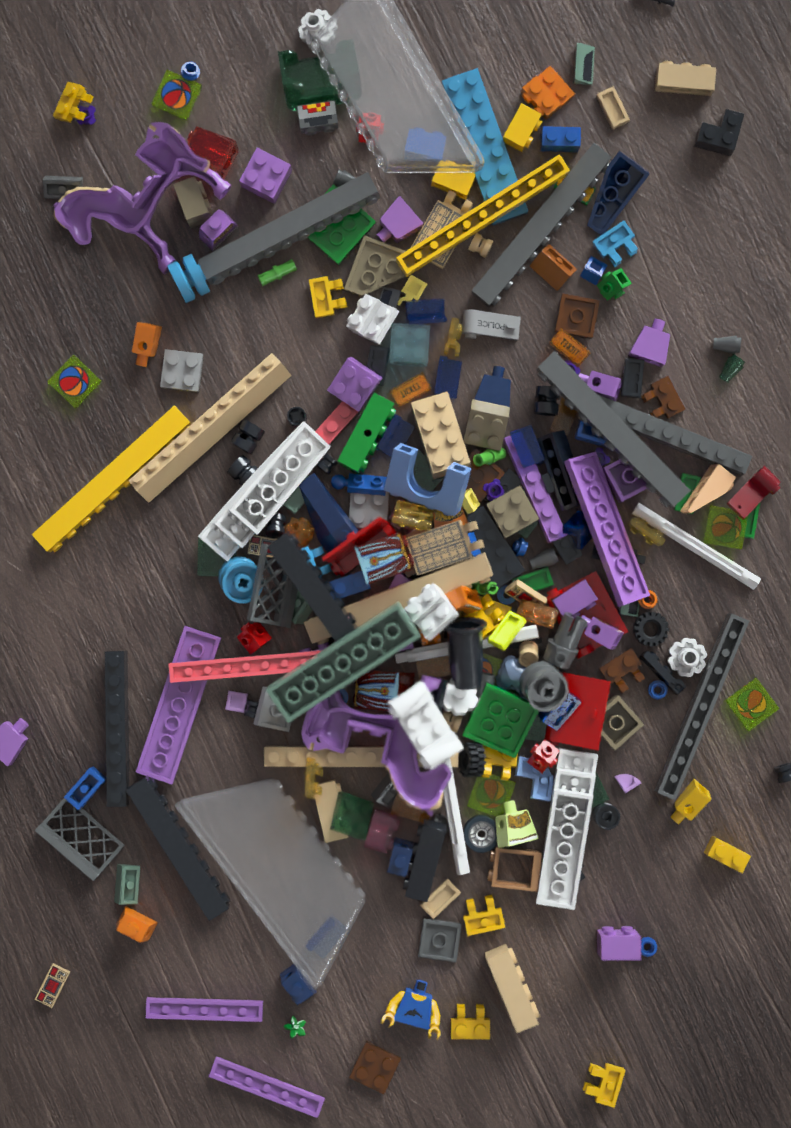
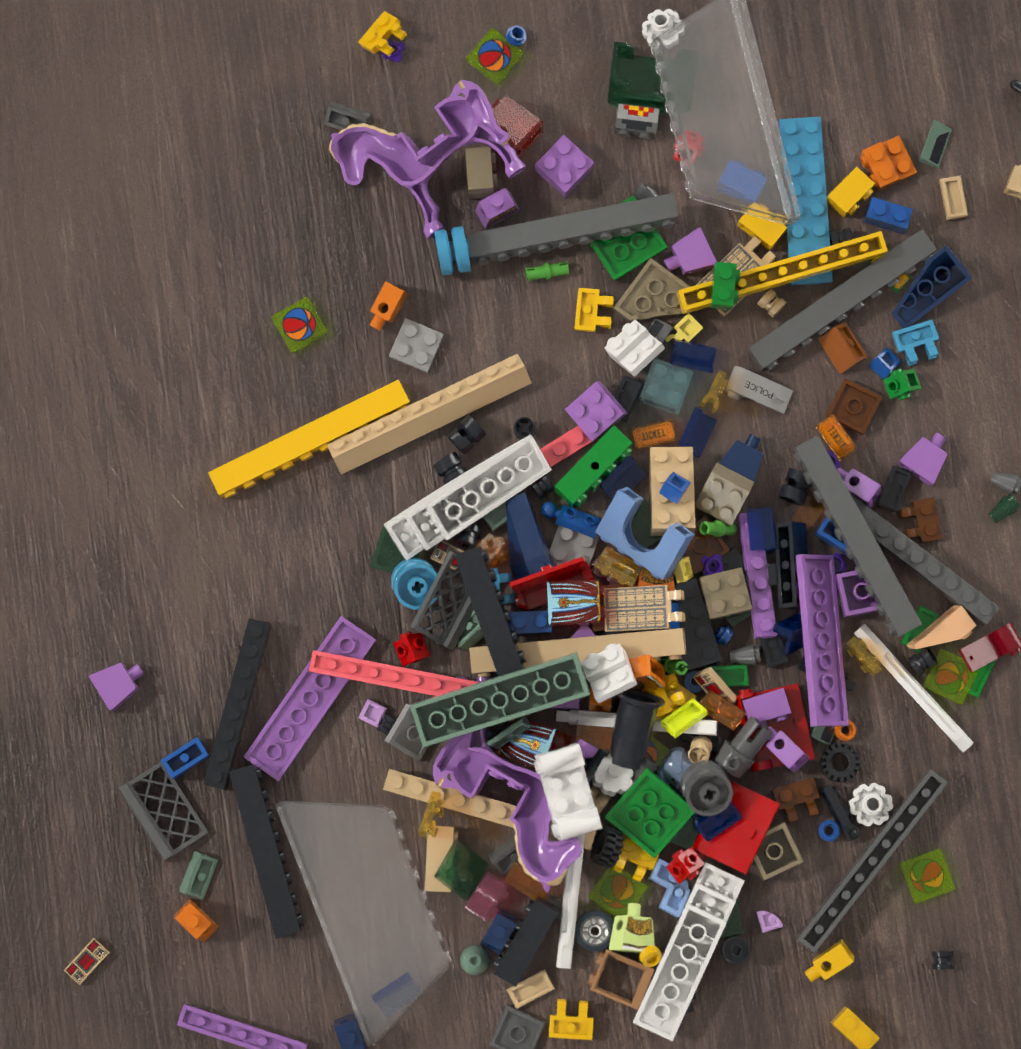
camera: 20 degrees right, 5 degrees down
(358, 686) = (509, 732): none -> sand green slope
(385, 887) = (474, 960): none -> sand green brick
(435, 243) = (723, 285): none -> green brick
(442, 432) = (674, 487): none -> blue slope
(525, 169) = (844, 235): none -> black wheel
(535, 843) = (650, 956): none -> yellow tile
(697, 521) = (921, 661): none -> black wheel

